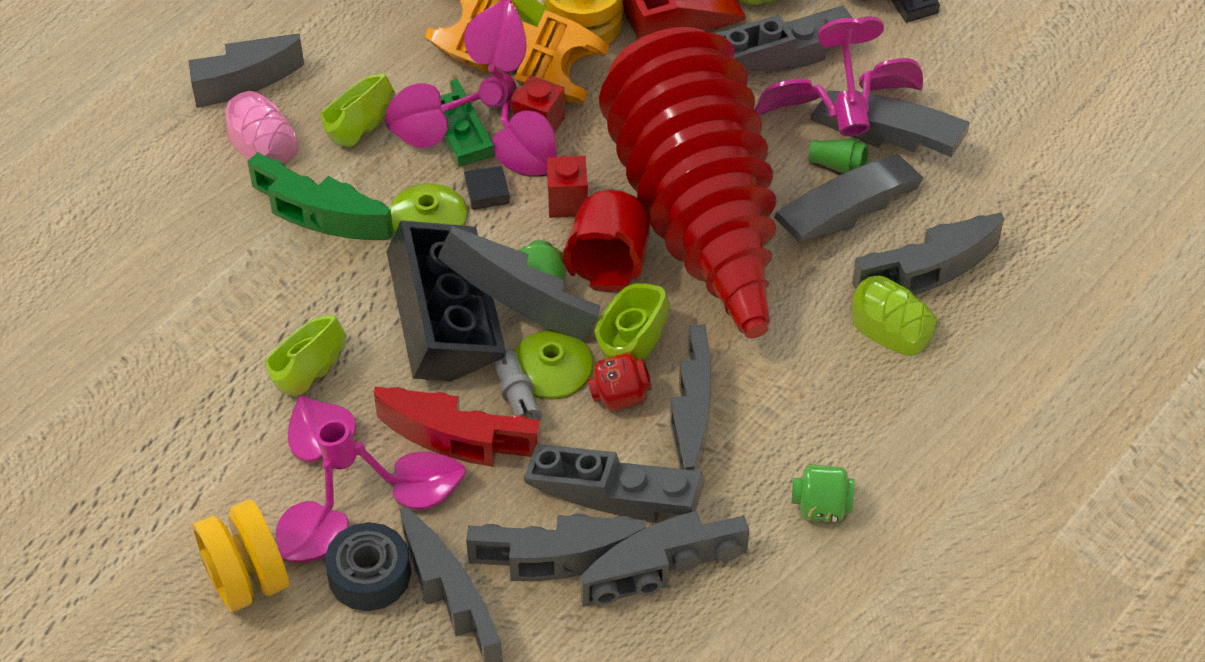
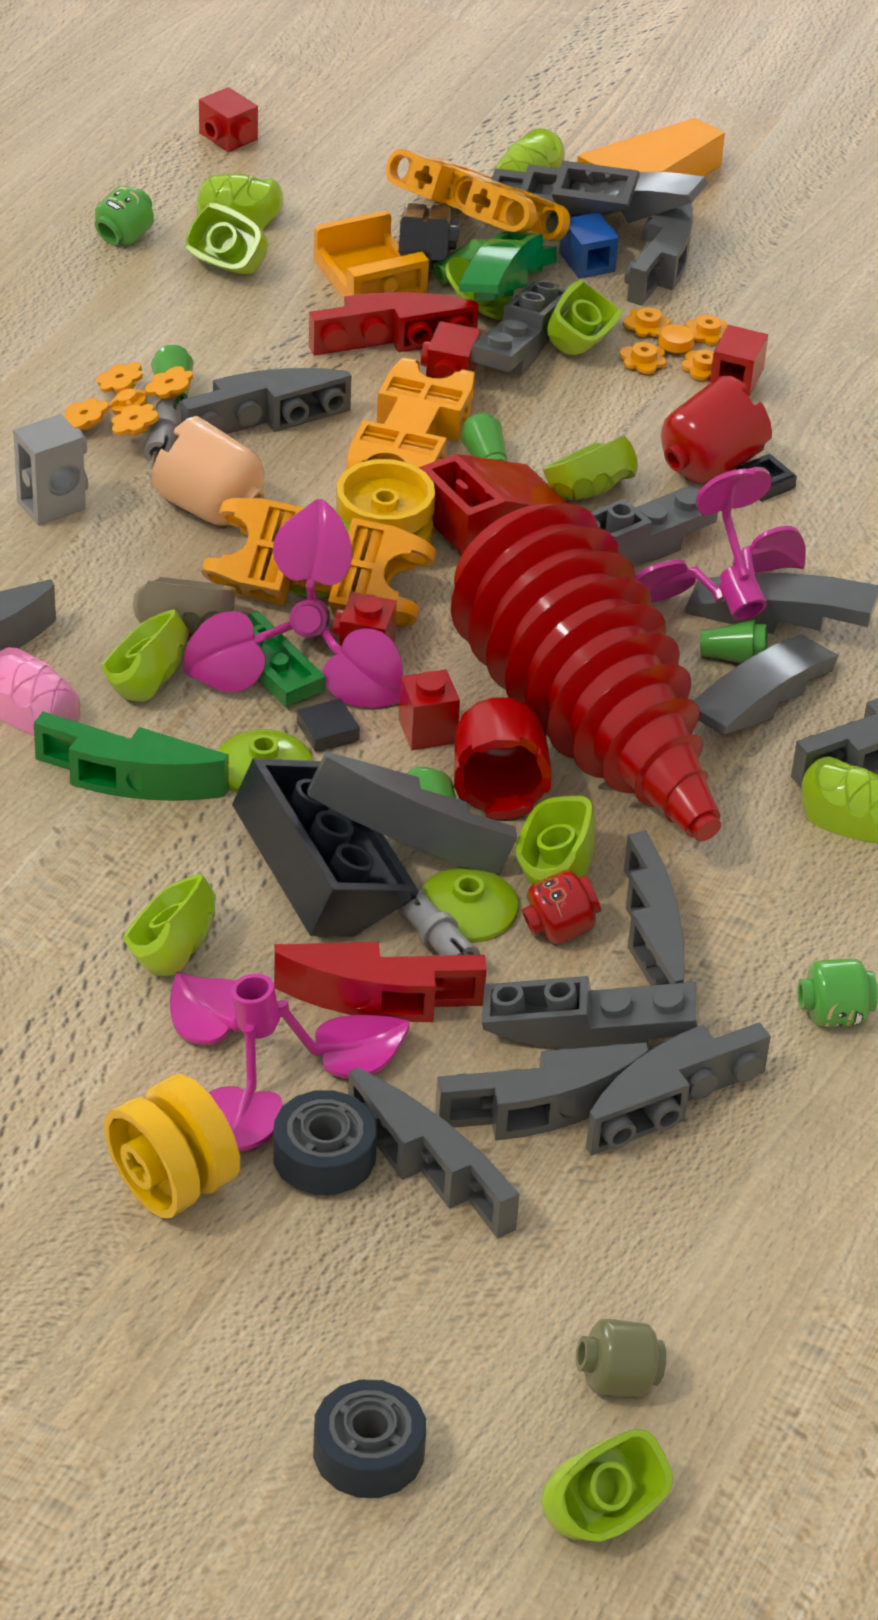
camera: 15 degrees left, 10 degrees down
(402, 63) = (191, 599): none -> dark tan piece

